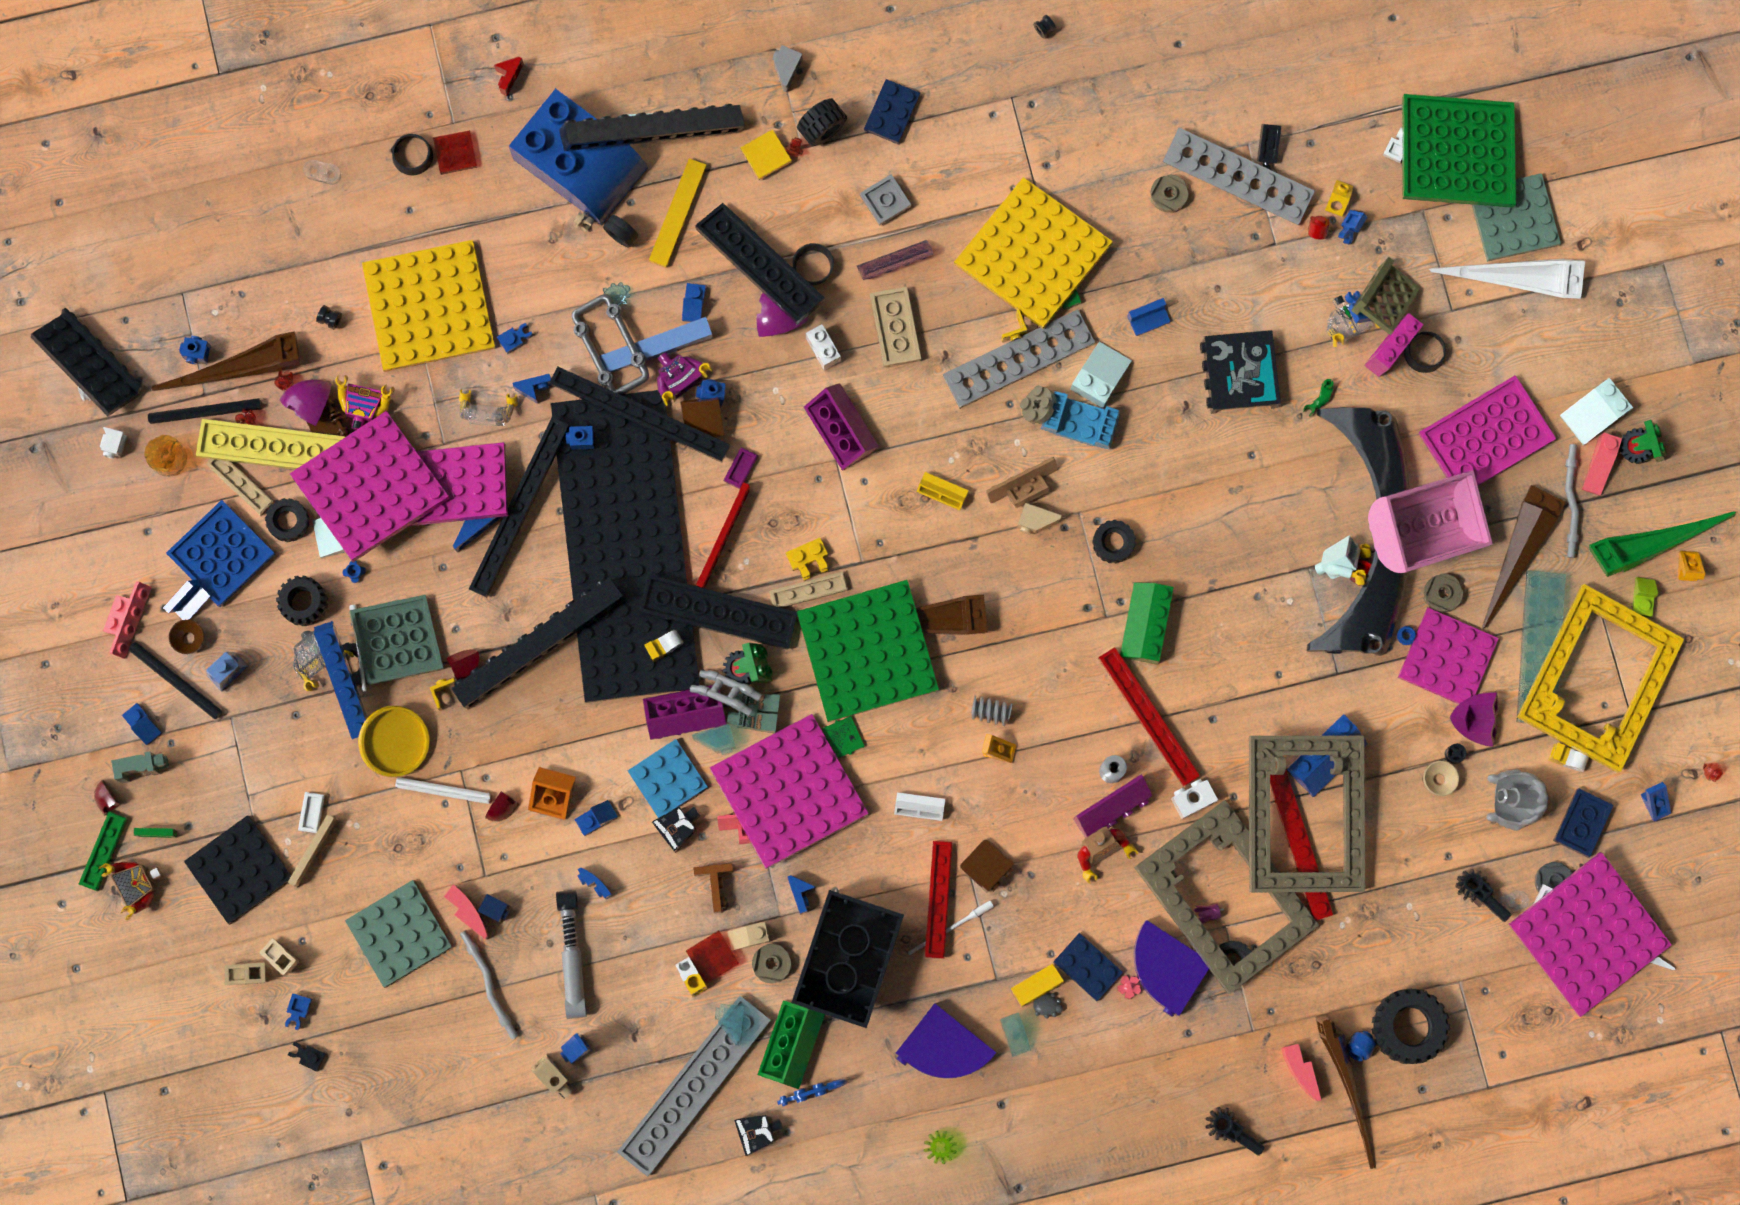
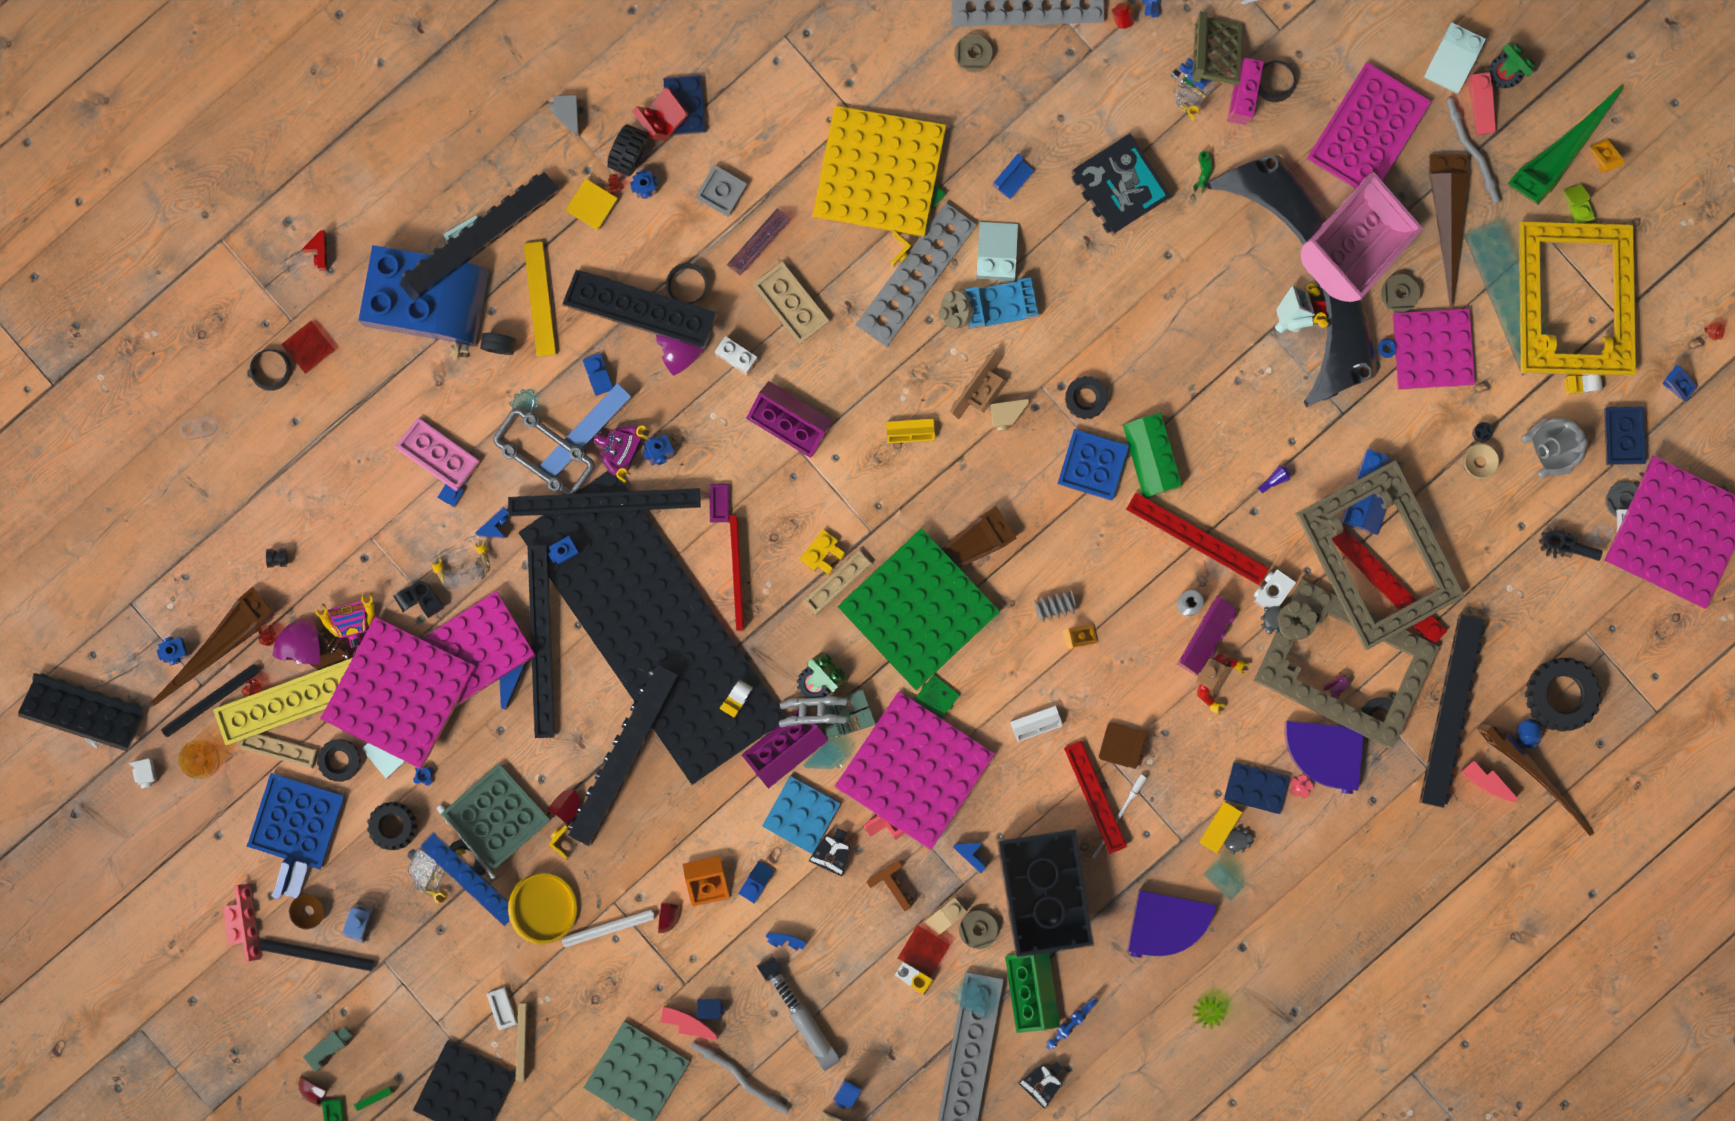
camera: 25 degrees left, 5 degrees up
(141, 724) = (308, 1009): blue slope -> none
(428, 305) = (359, 500): yellow plate -> none
(440, 422) = (428, 602): none -> black piece
(517, 299) = (437, 454): none -> bright pink tile
(703, 416) = (662, 474): reddish brown slope -> none
(718, 612) = (768, 644): black plate -> none
(821, 166) = (644, 191): none -> blue brick
(867, 110) = (662, 115): none -> bracket
(1089, 603) = (1093, 465): none -> blue plate
(1181, 822) = (1270, 619): none -> dark grey piece
(1190, 831) = (1287, 626): none -> dark tan plate
(1232, 1131) = (1455, 866): black gear -> none
(1249, 699) = (1278, 477): none -> dark purple cone
(1300, 988) = (1451, 711): none -> black brick
(1477, 718) = (1486, 390): magenta brick -> none

